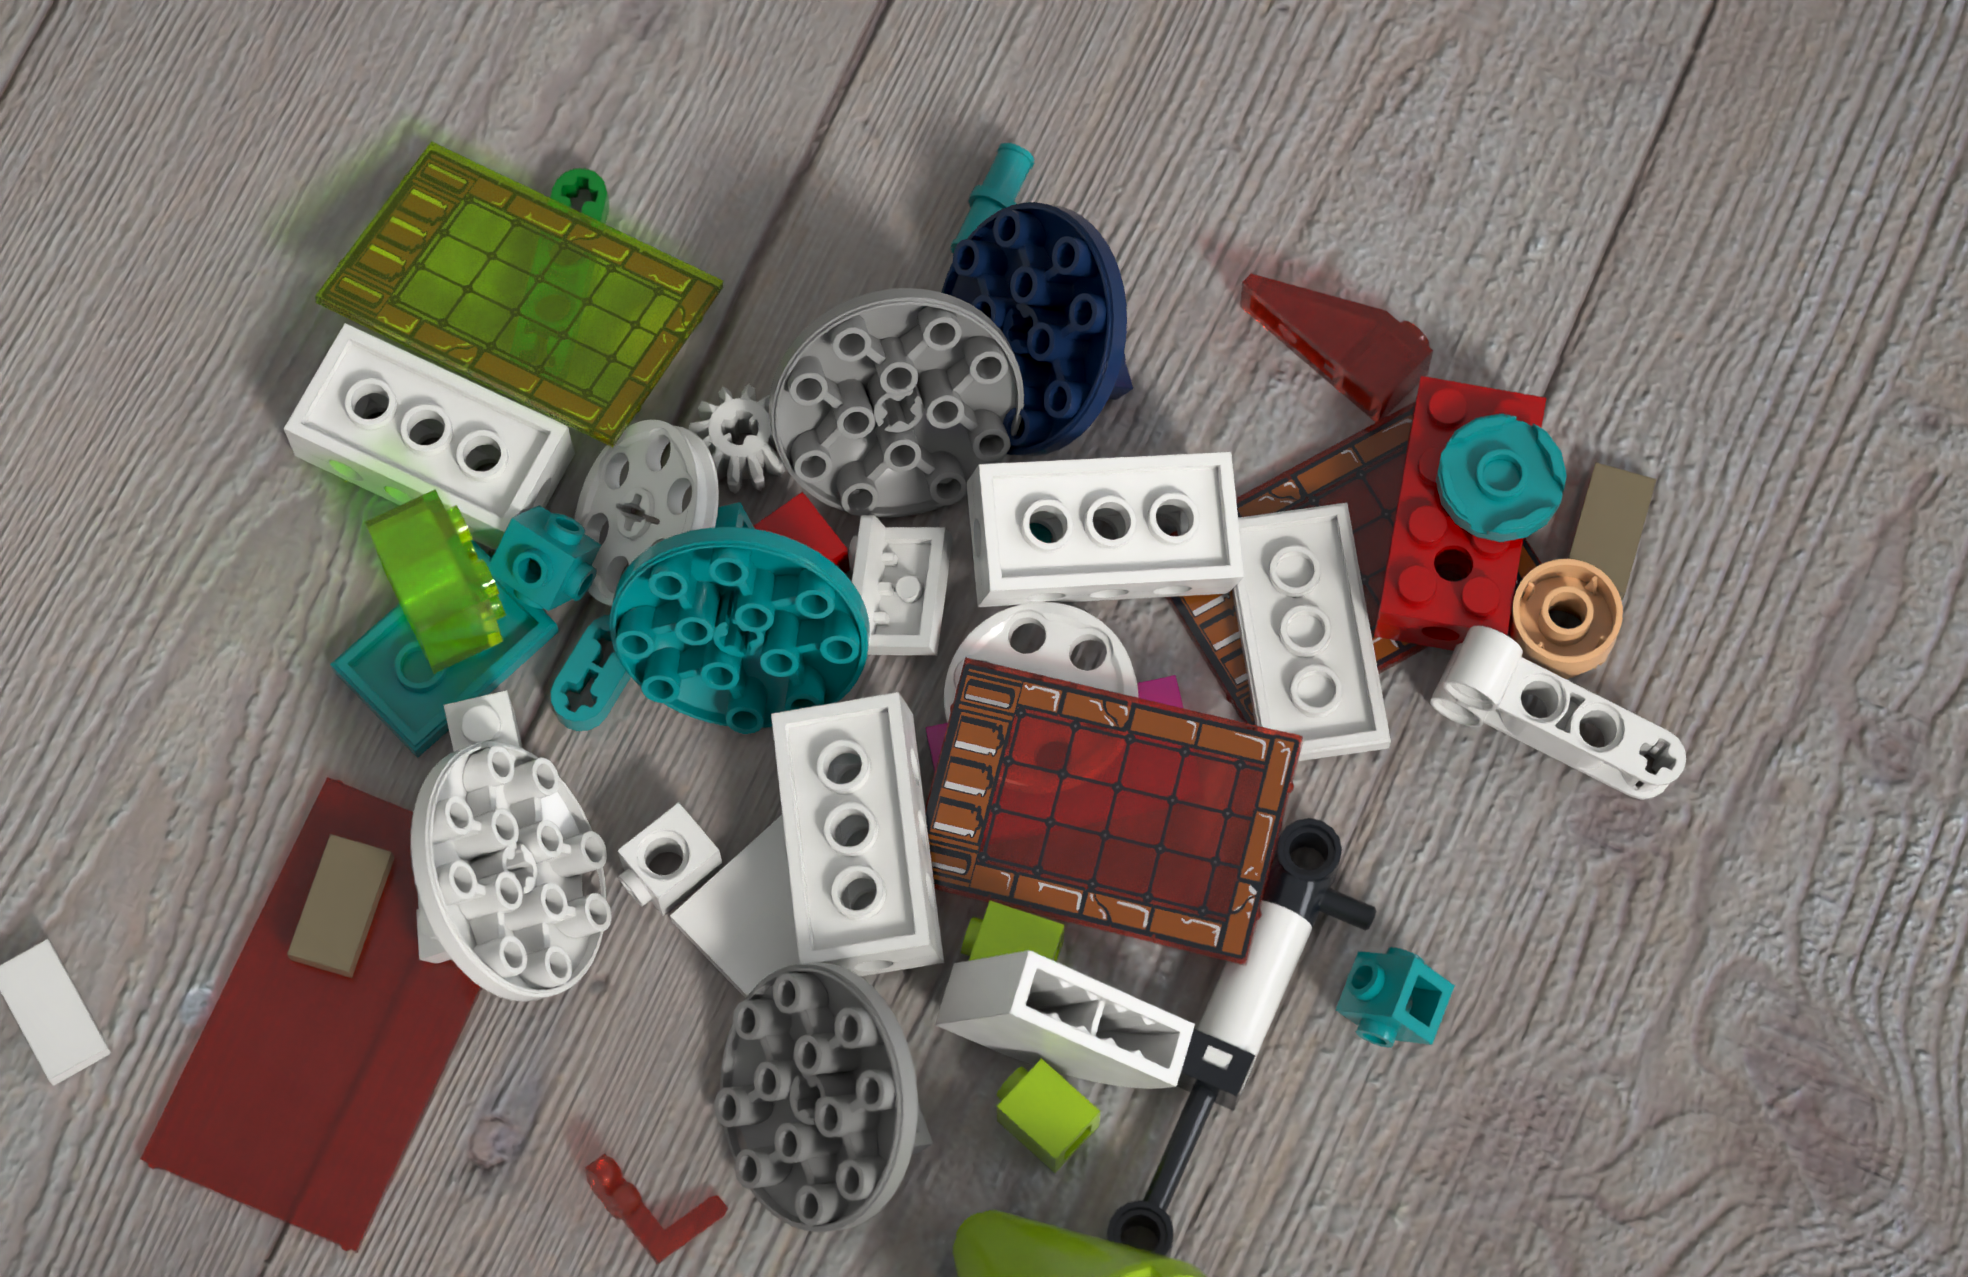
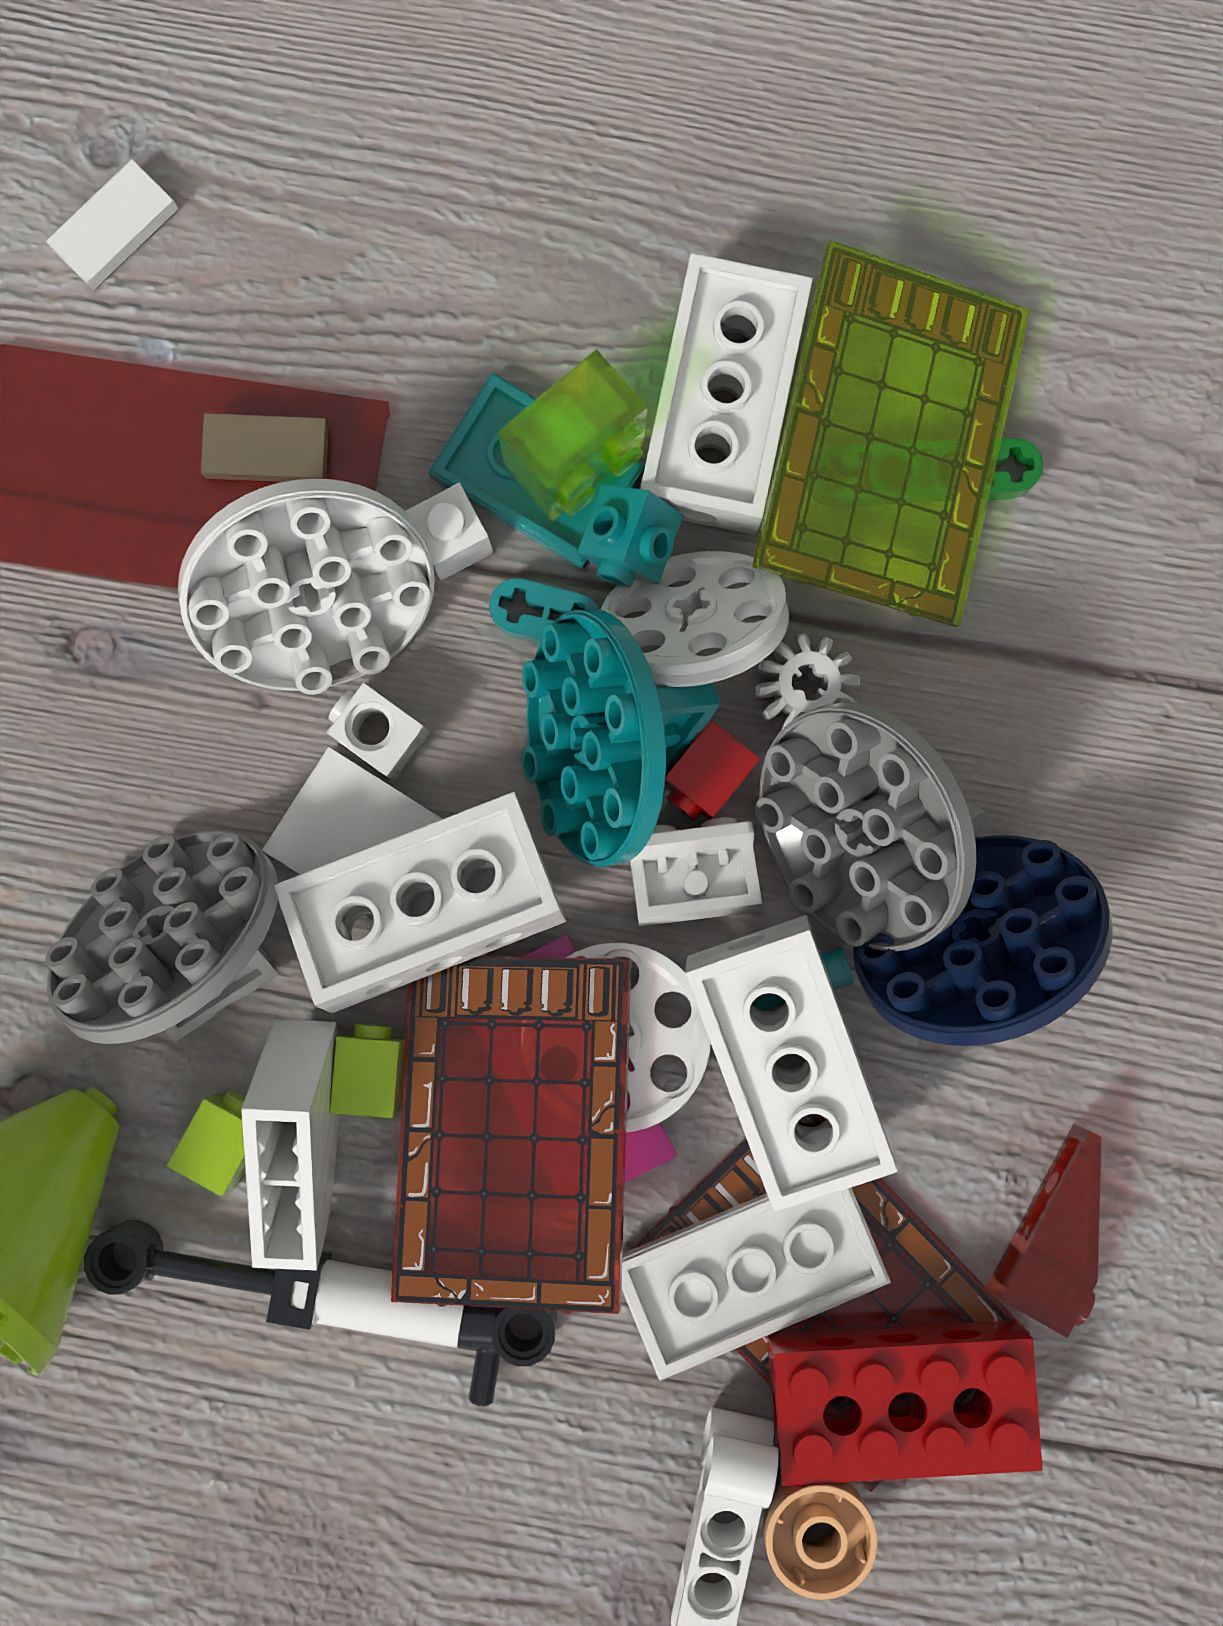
camera: 75 degrees right, 15 degrees up
(626, 1204) = (53, 780): clear red piece -> none
(998, 188) = (1116, 862): teal pin -> none
(1394, 998) = (402, 1445): teal brick -> none
(1501, 478) = (940, 1451): teal tile -> none
(1612, 522) = (935, 1540): dark tan tile -> none

